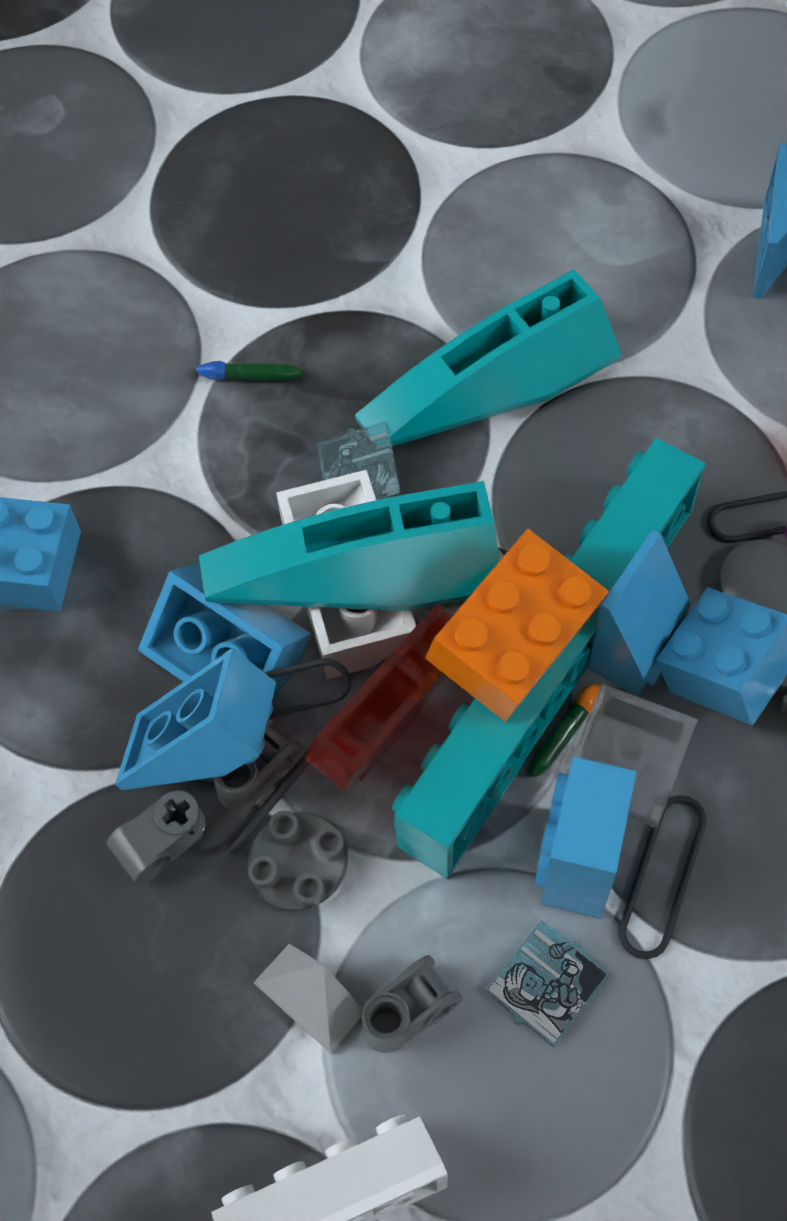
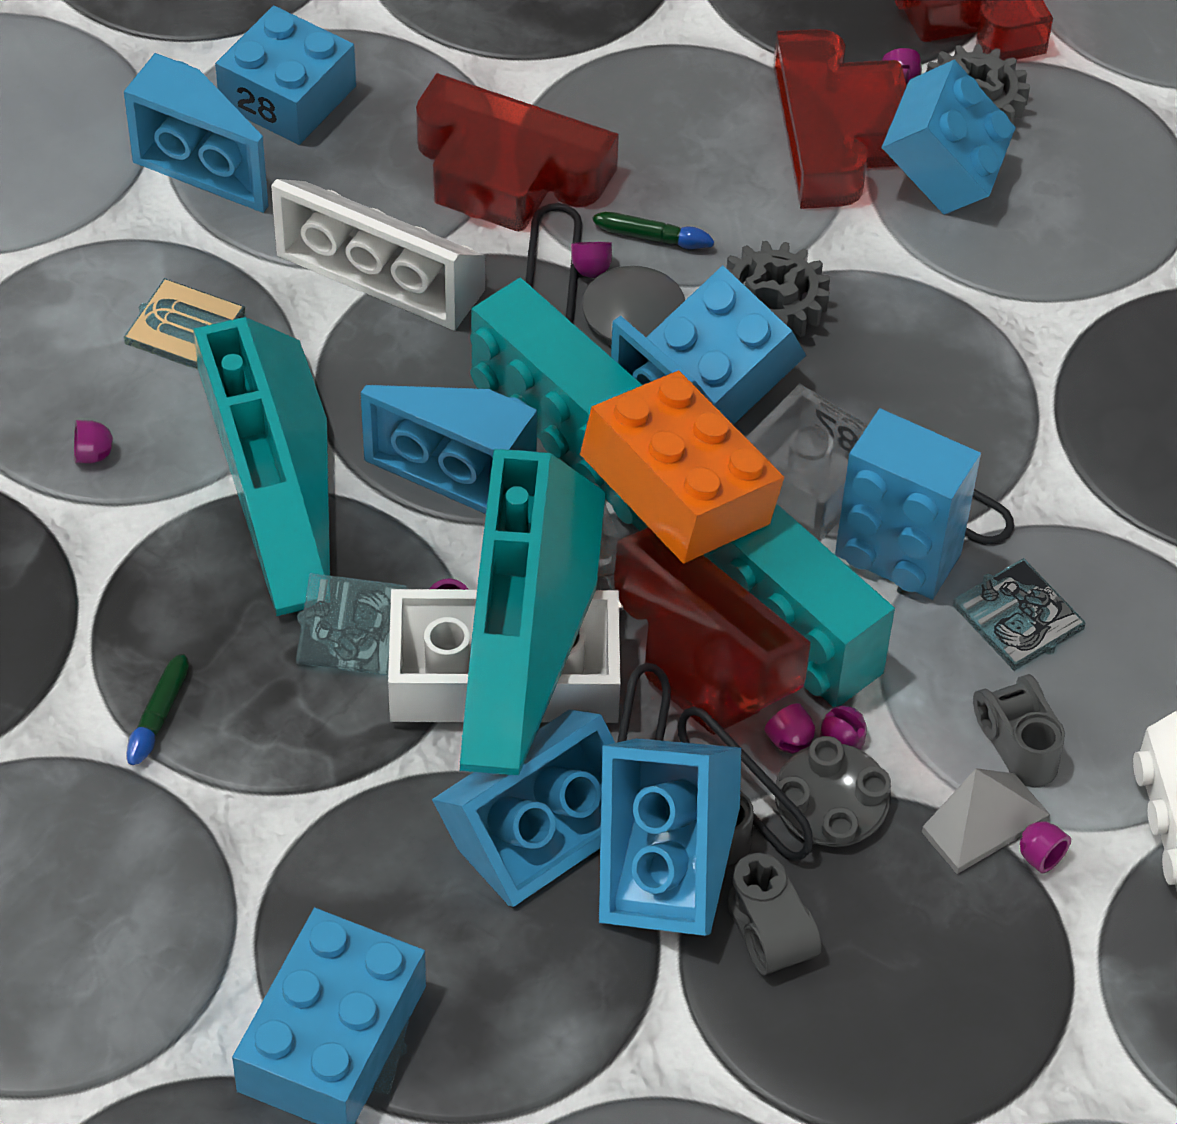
camera: 80 degrees left, 10 degrees down
(289, 1050) = (1044, 845): none -> magenta hinge
(351, 812) = (791, 729): none -> magenta hinge
(379, 860) = (840, 724): none -> magenta hinge
(470, 254) = (91, 441): none -> magenta hinge
(542, 481) = (444, 436): none -> dark azure slope
(617, 278) = (169, 320): none -> piece
(733, 374) = (376, 253): none -> white slope

